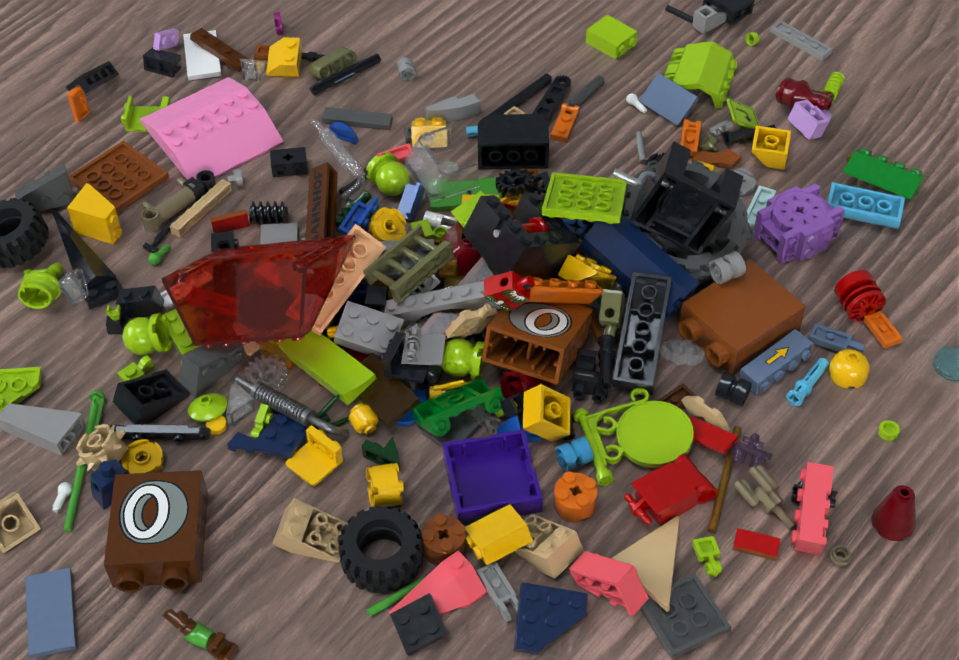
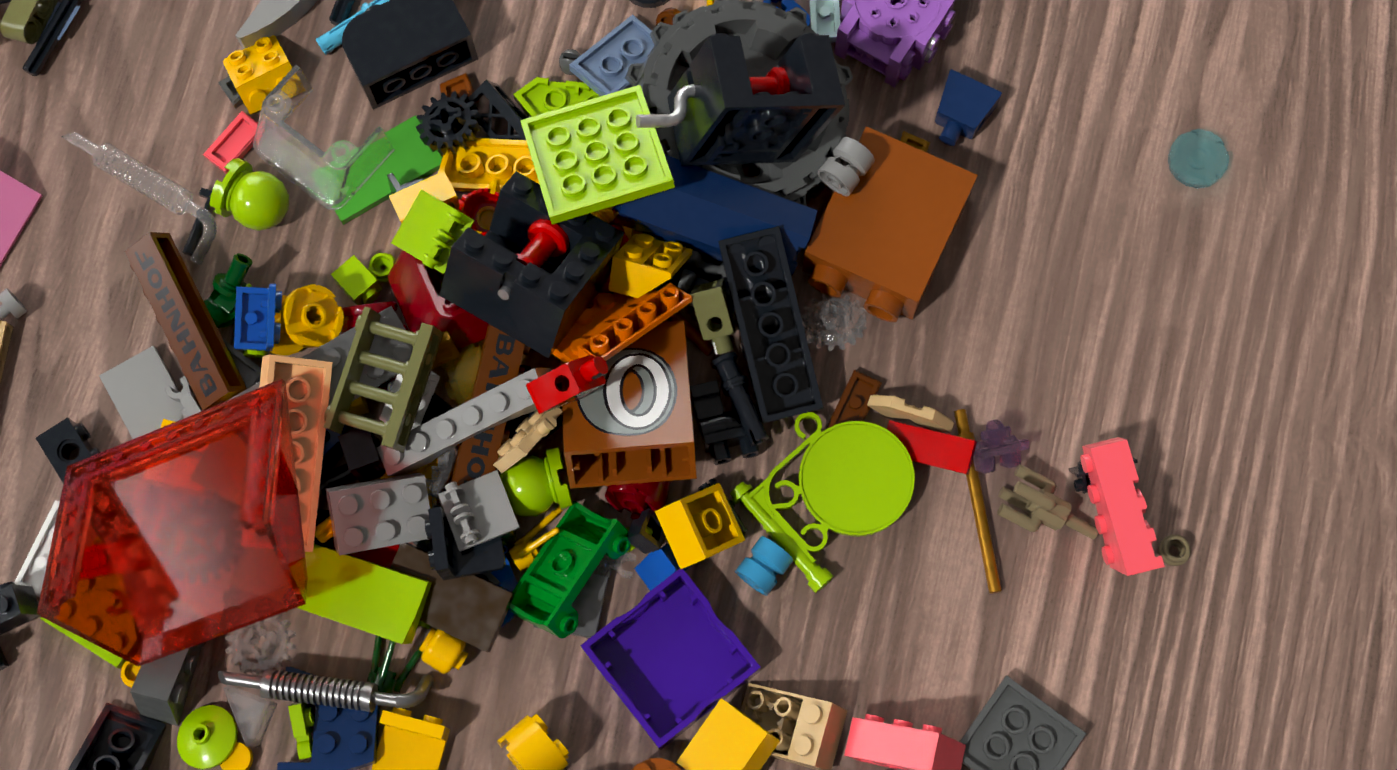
camera: 25 degrees left, 25 degrees up
(133, 371) = (63, 733): lime plate -> none
(147, 334) = (50, 668): lime tile -> none
(230, 221) = (47, 394): red tile -> none
(268, 213) = (100, 351): black piece -> none
(288, 162) = (60, 236): black brick -> none
(344, 132) = (127, 137): blue tile -> none
(357, 118) = (133, 95): dark grey tile -> none
(380, 455) = (511, 695): dark green slope -> none
(411, 200) = (306, 230): panel -> none
(438, 220) = (363, 243): white hinge -> none
(575, 496) = (810, 621): orange brick -> none
(655, 561) = (942, 684): tan tile -> none
(670, 491) = (918, 563): red piece -> none
(707, 550) = (1004, 629): lime plate -> none
(731, 388) = (929, 350): black wheel -> none
(756, 544) = (1061, 584): red tile -> none
(776, 361) = (964, 275): sand blue brick -> none
(804, 386) = (1020, 298): medium azure pin -> none
(816, 284) = (964, 107): none -> dark blue torso
(833, 339) = (1027, 196): sand blue hinge -> none
(849, 369) = (1065, 237): yellow cylinder -> none
(859, 295) = (1031, 103): red wheel -> none
(883, 329) = (1084, 145): orange plate -> none
(889, 430) = (1156, 314): lime tile -> none
(896, 514) = (1219, 458): dark red cone -> none

